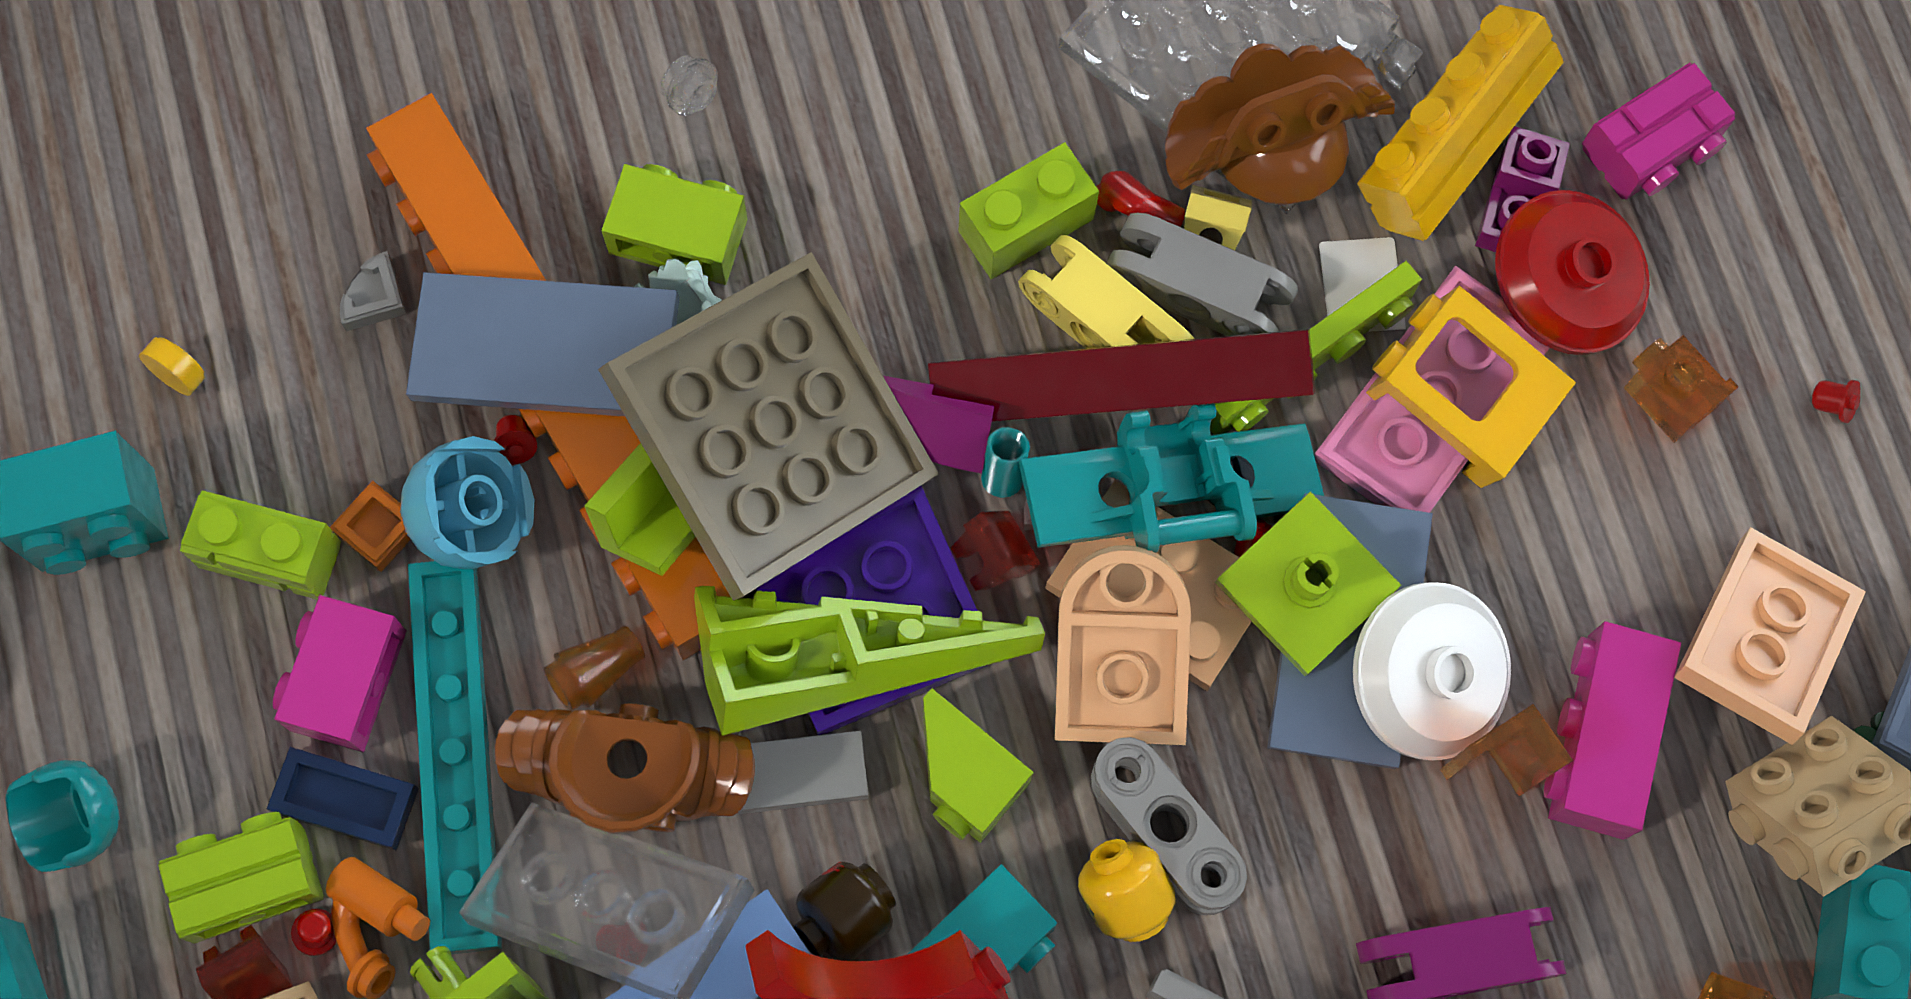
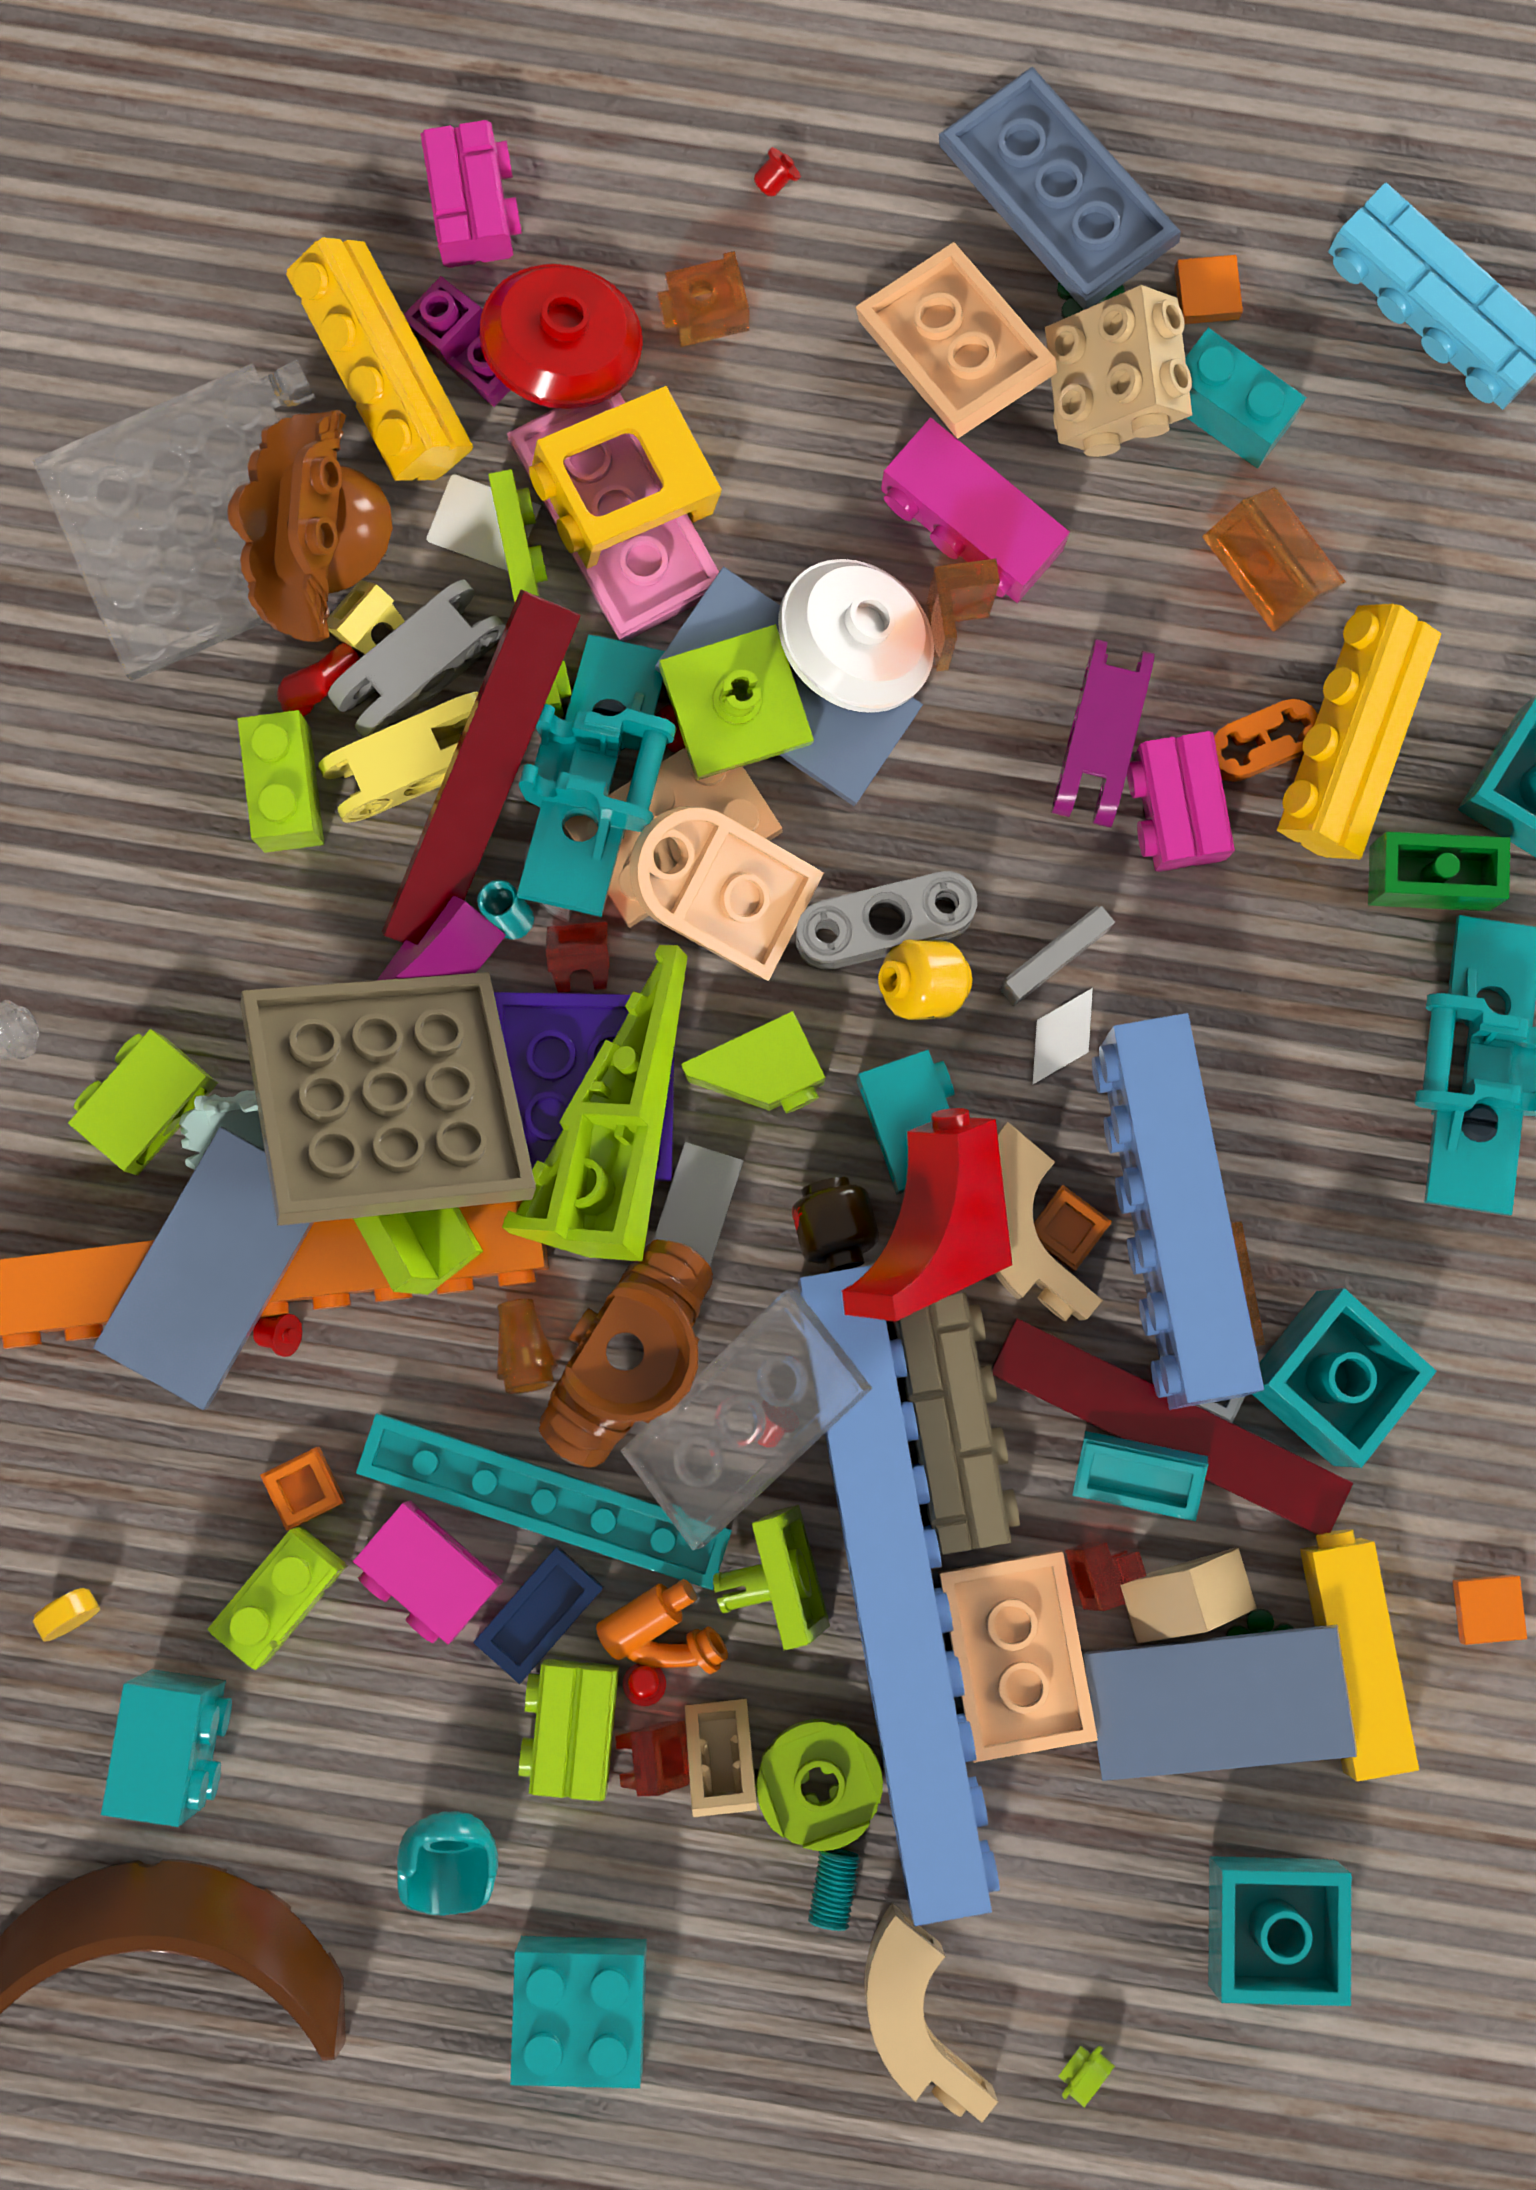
camera: 65 degrees left, 10 degrees up
(372, 294) = (78, 1405): light grey tile -> none
(467, 504) = (328, 1398): medium azure cylinder -> none

